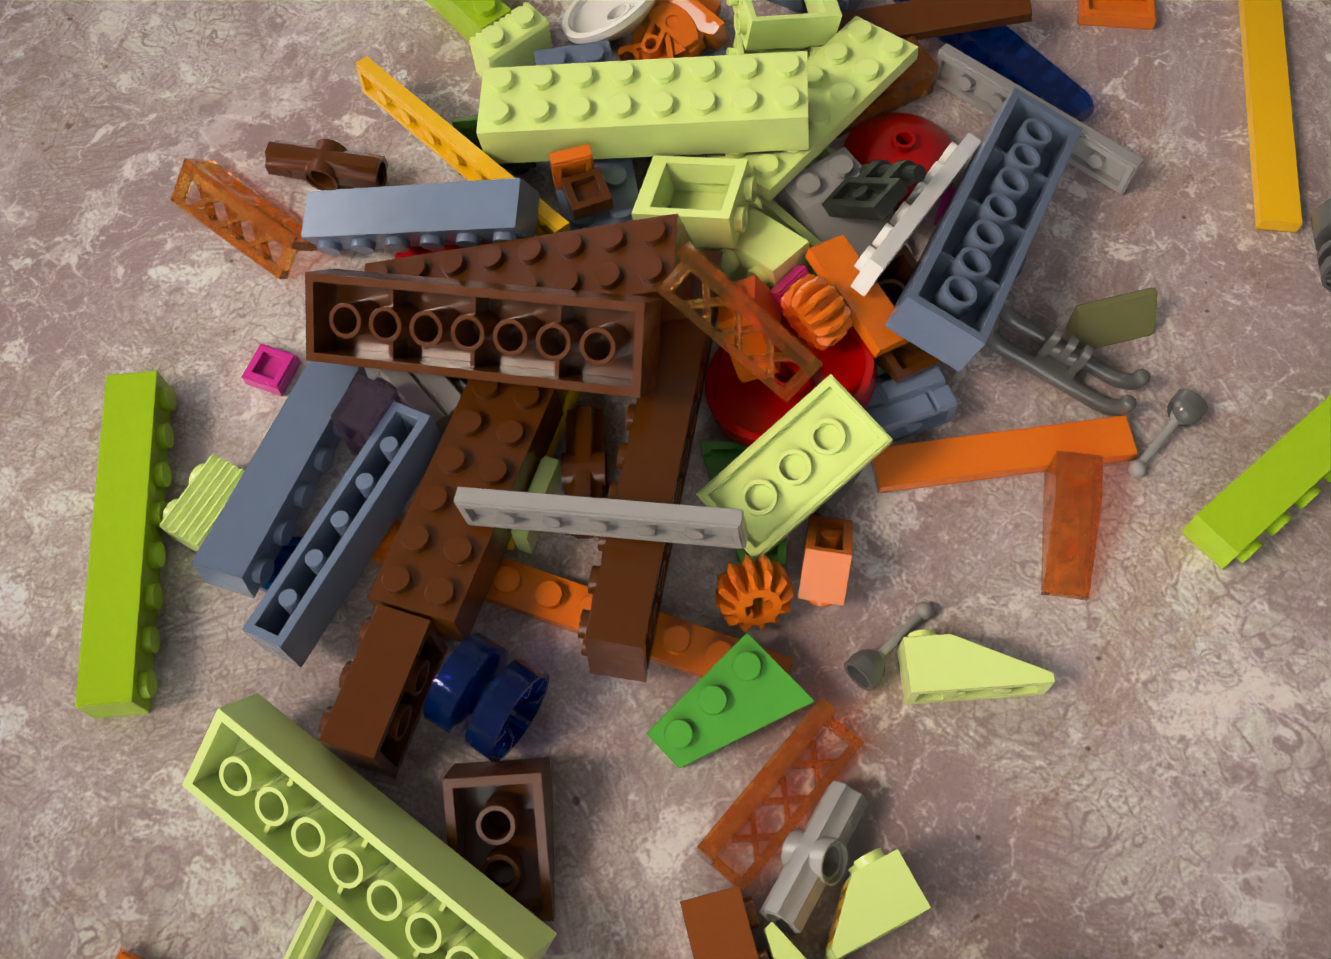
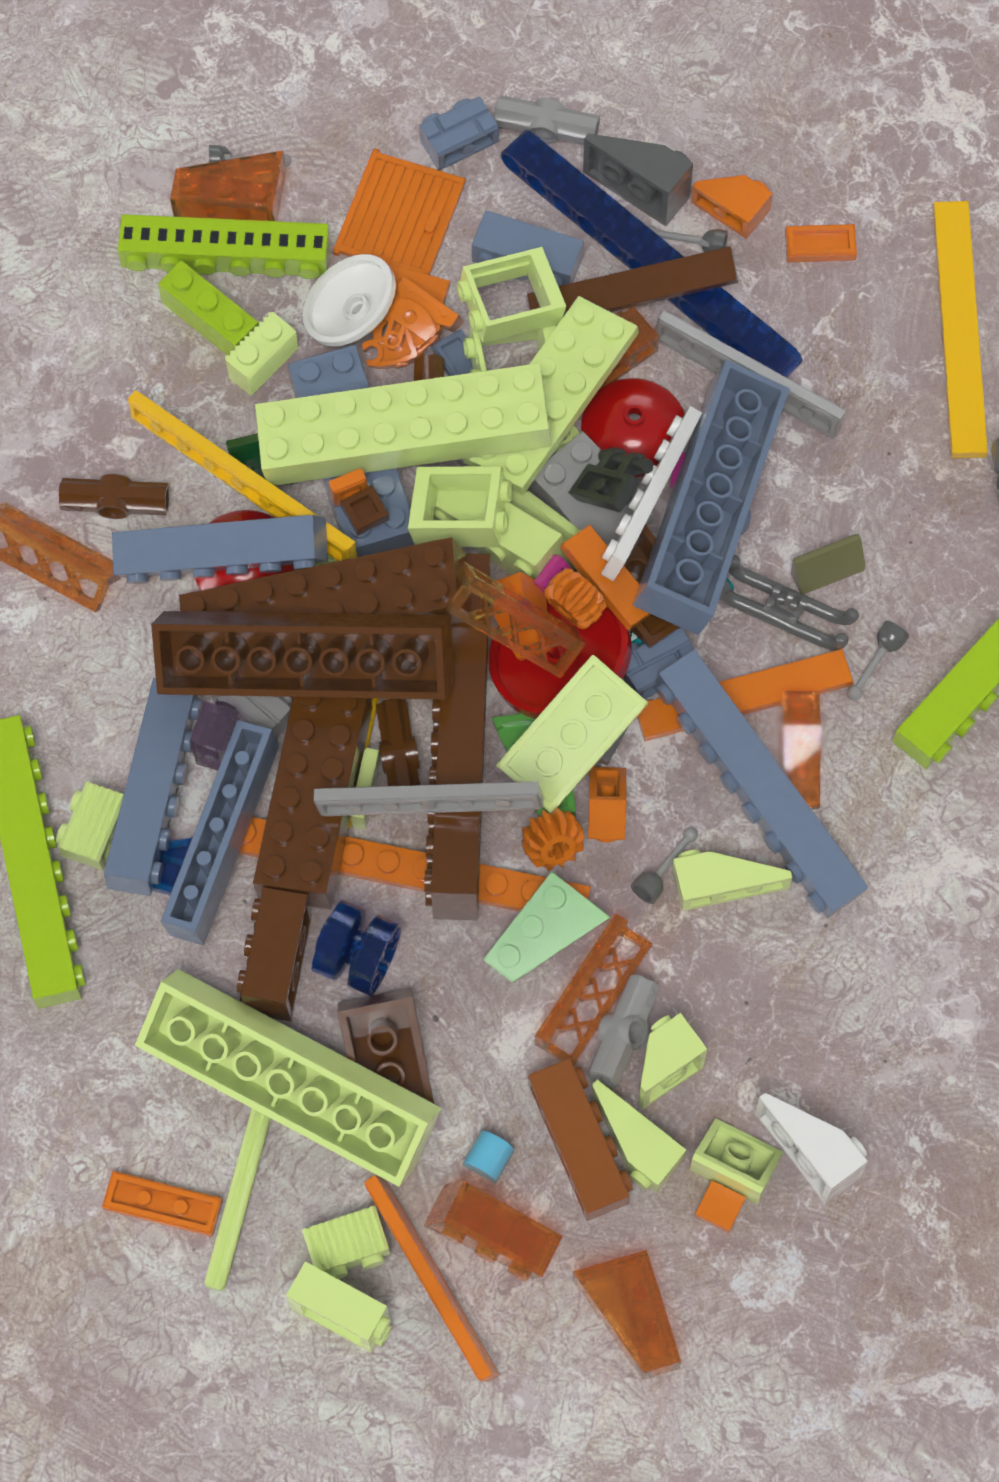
camera: 10 degrees left, 5 degrees up
(271, 369) = (109, 697): dark pink tile -> none
(1024, 564) = (760, 784): none -> sand blue brick

